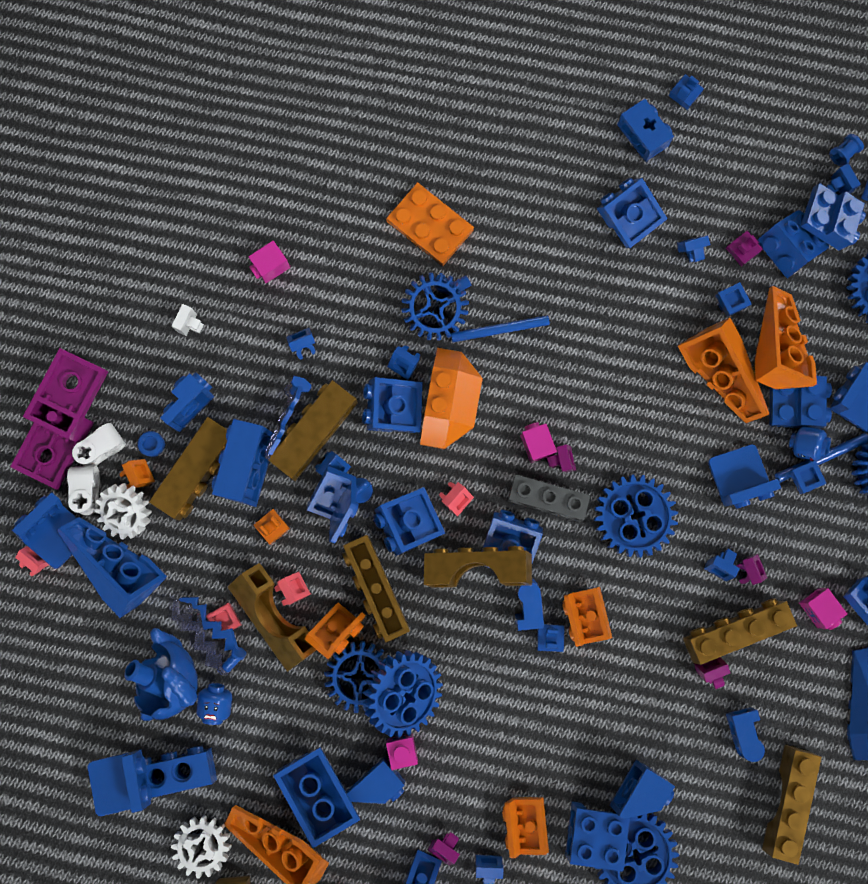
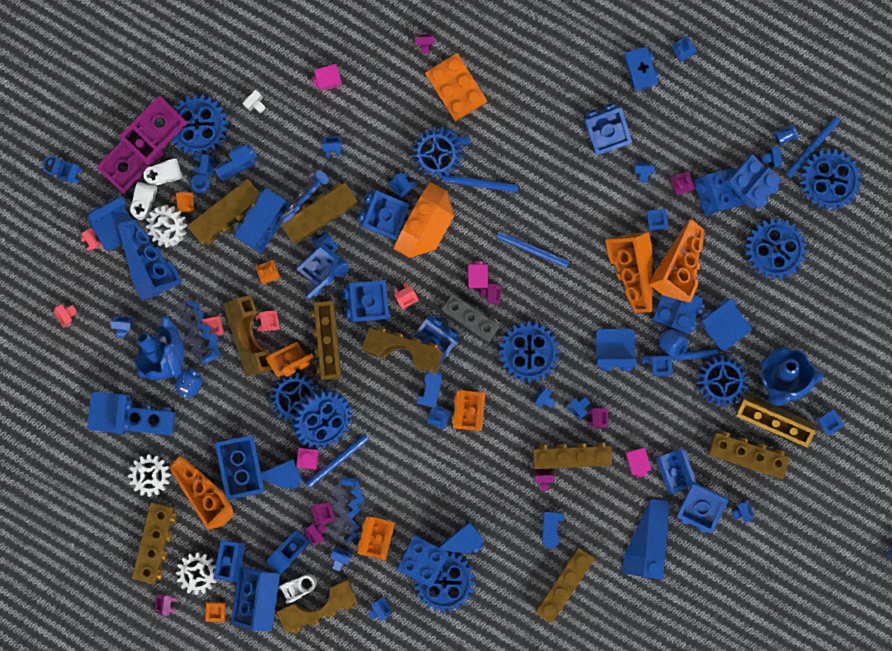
camera: 25 degrees right, 5 degrees up
(25, 670) = (63, 315): none -> coral tile
(104, 658) = (122, 324): none -> blue tile
(131, 393) = (198, 142): none -> blue gear
(150, 417) = (207, 165): none -> blue tile
(373, 180) = (424, 40): none -> magenta tile
(440, 740) = (336, 461): none -> blue bar
(445, 819) = (322, 513): none -> magenta tile
(476, 811) = (346, 517): none -> piece
(593, 387) = (532, 249): none -> blue bar
(673, 568) = (542, 397): none -> blue tile

